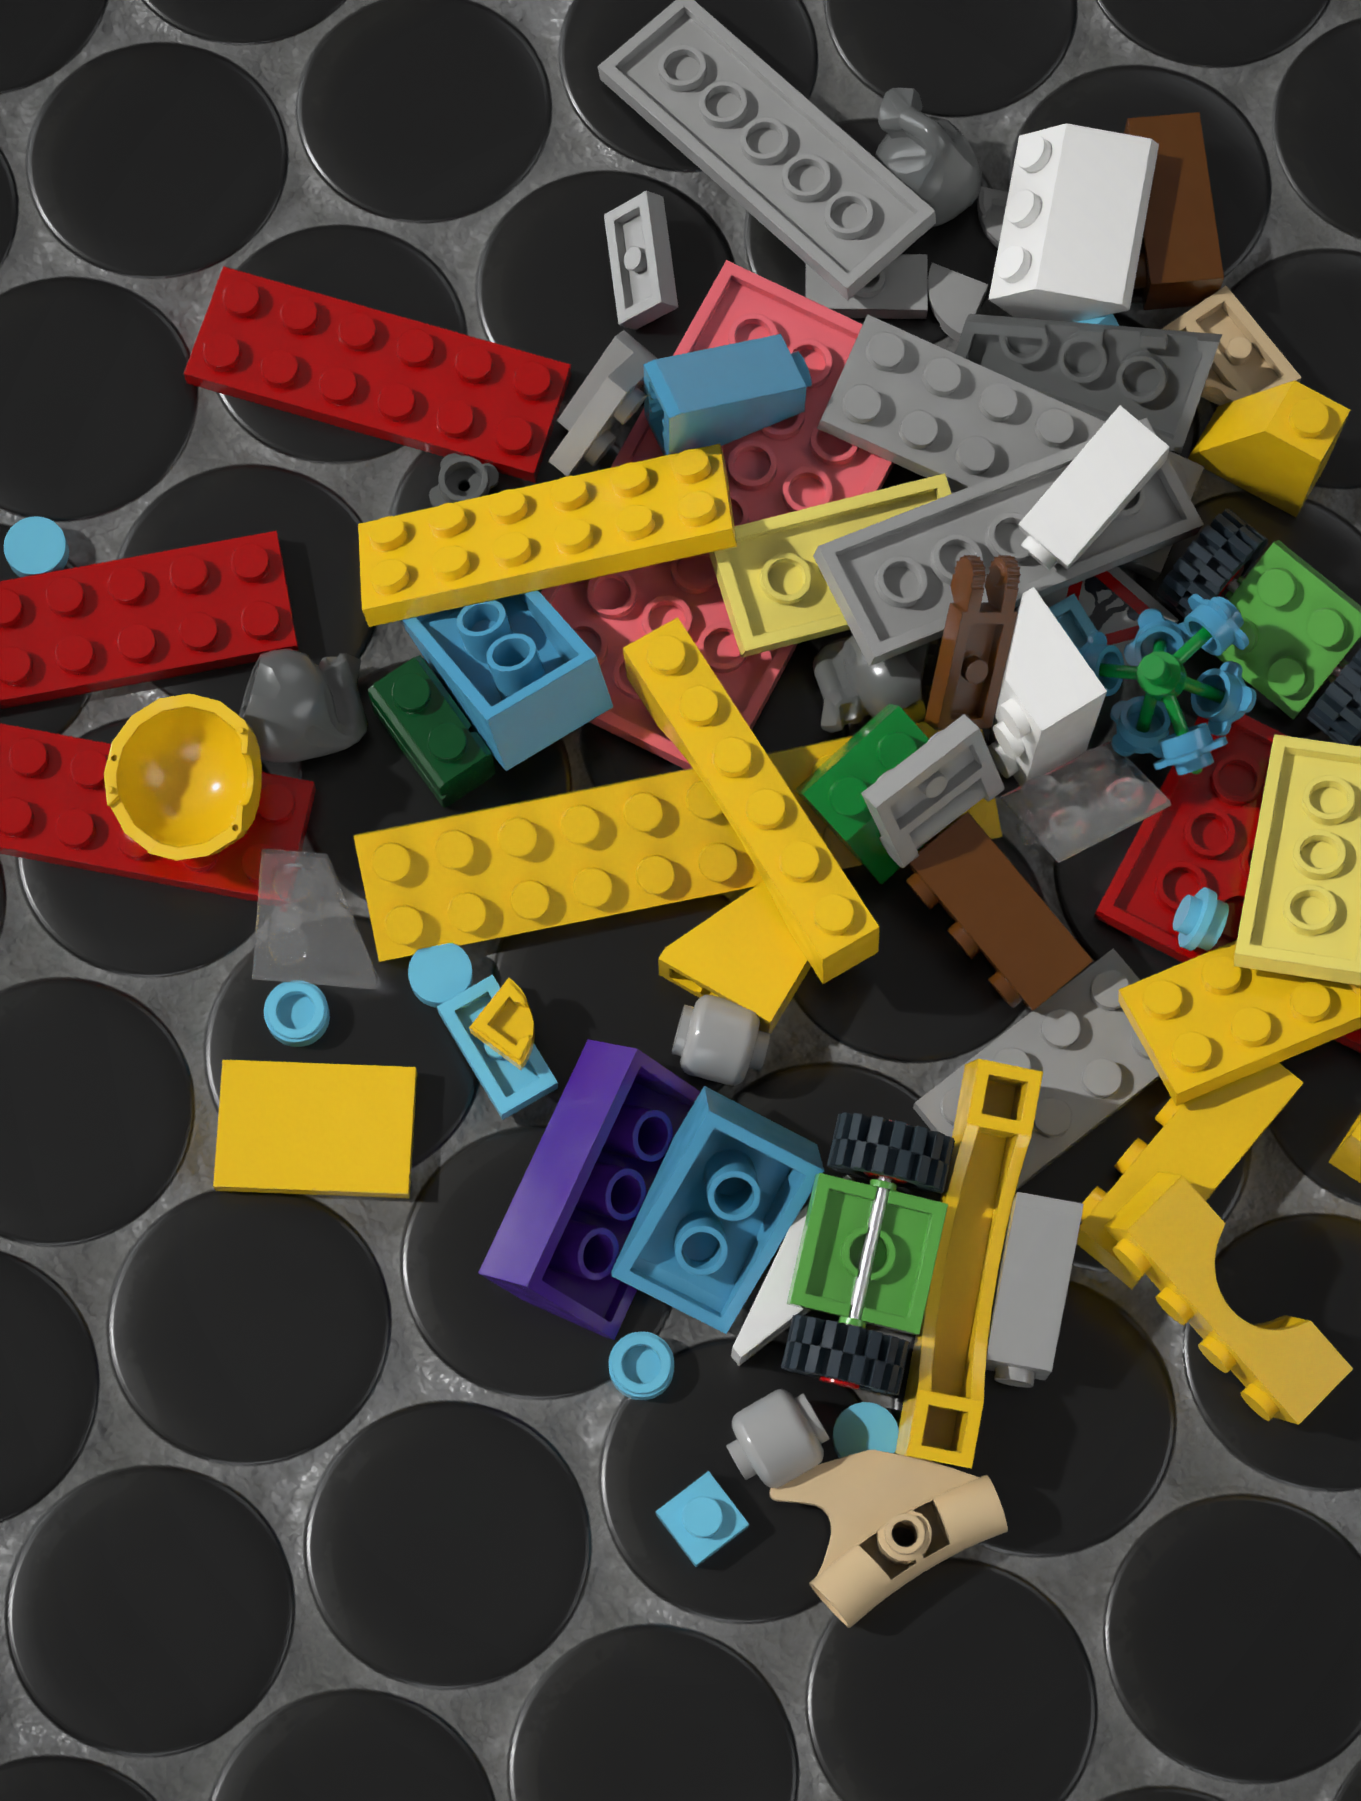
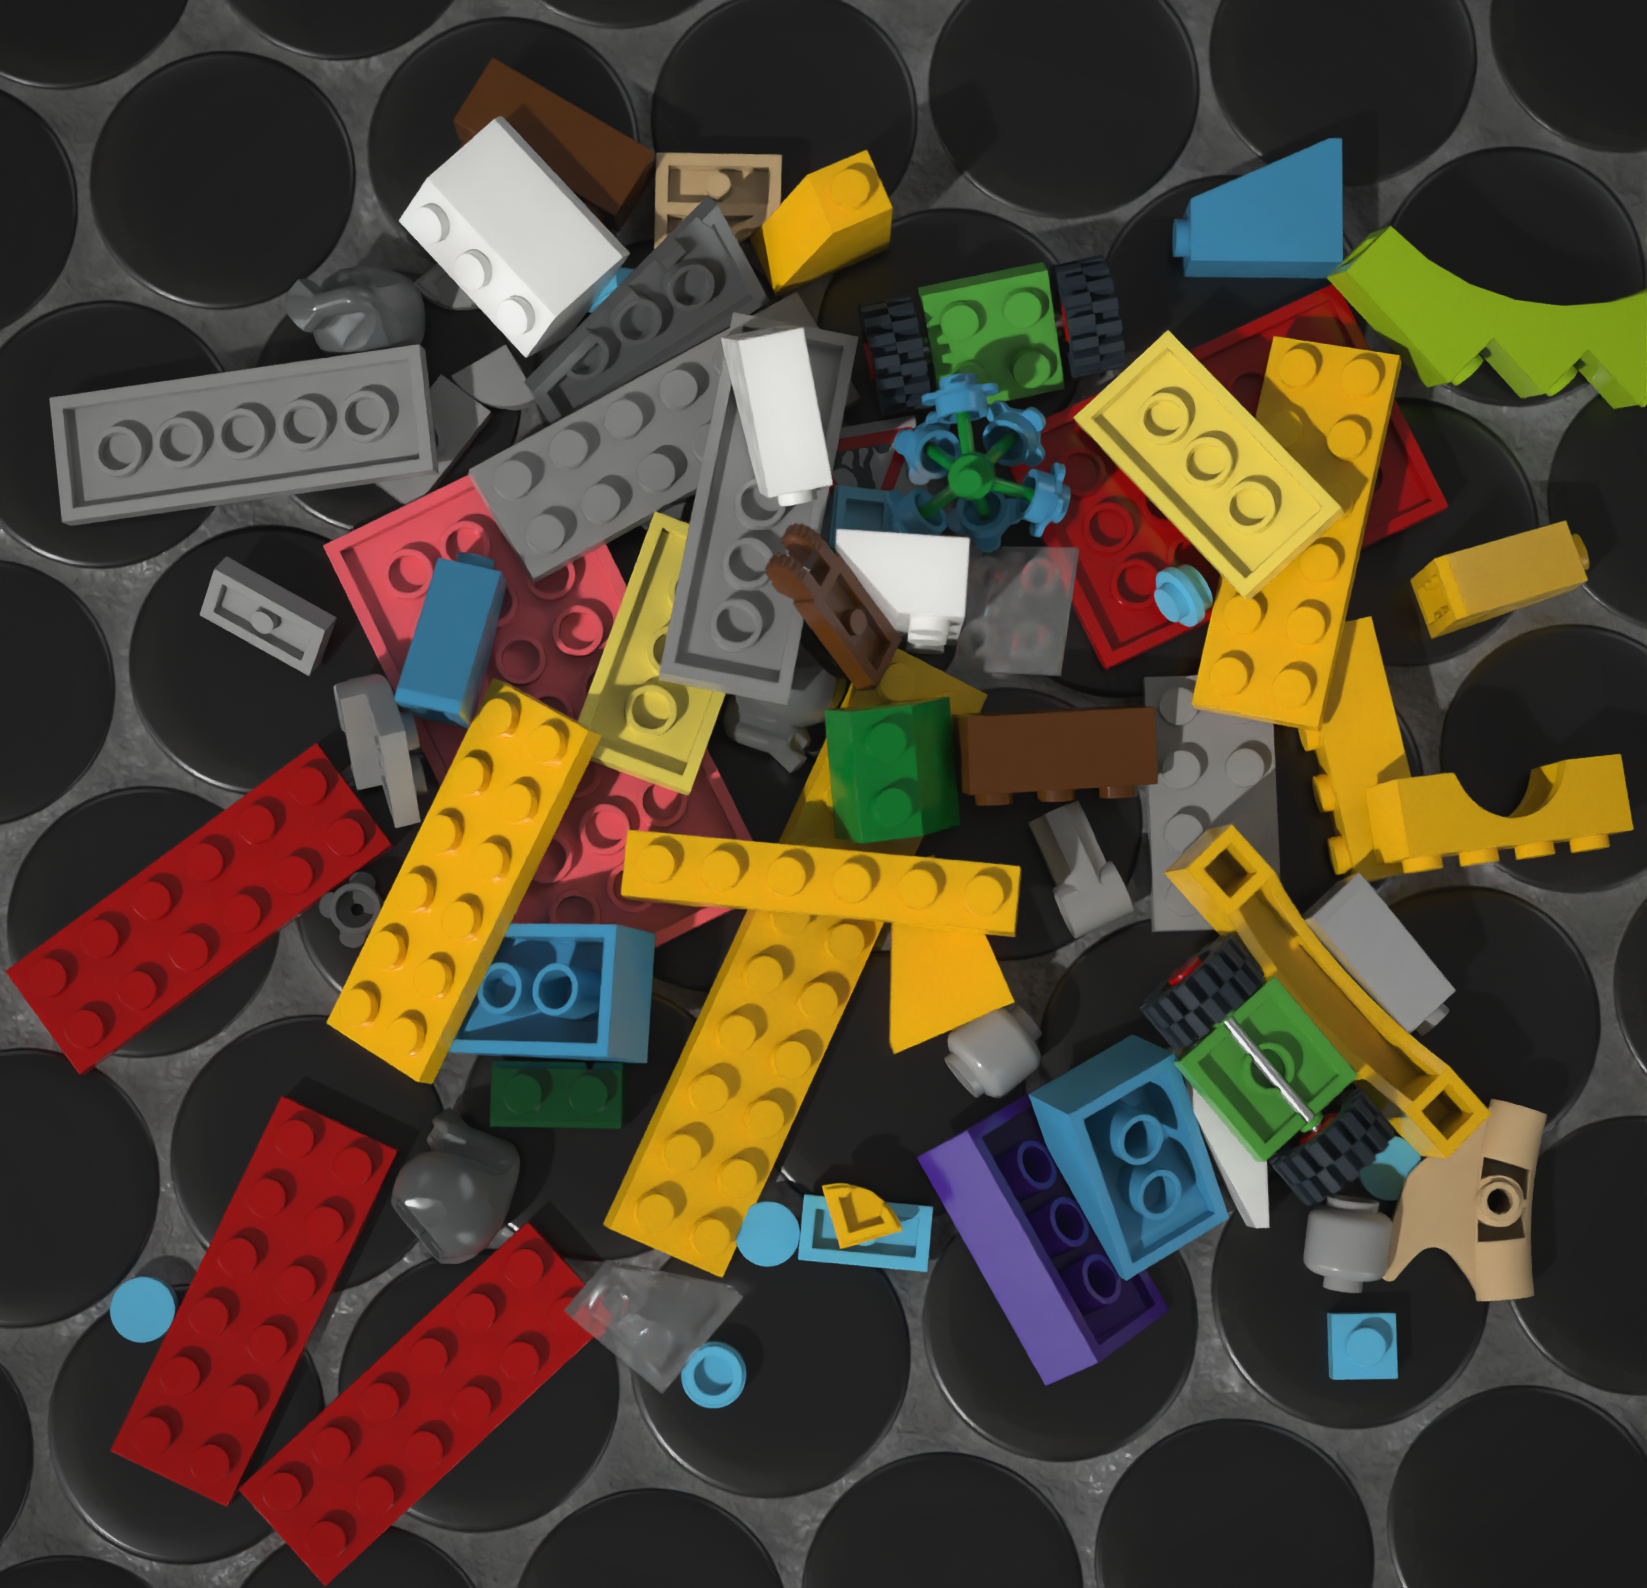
camera: 55 degrees left, 10 degrees up
(184, 777) = (464, 1339): yellow cylinder -> none
(315, 1129) = (823, 1428): yellow tile -> none
(641, 1365) = (1206, 1304): medium azure tile -> none
(911, 1018) = (1085, 884): none -> light grey piece
(932, 789) = (935, 737): light grey plate -> none

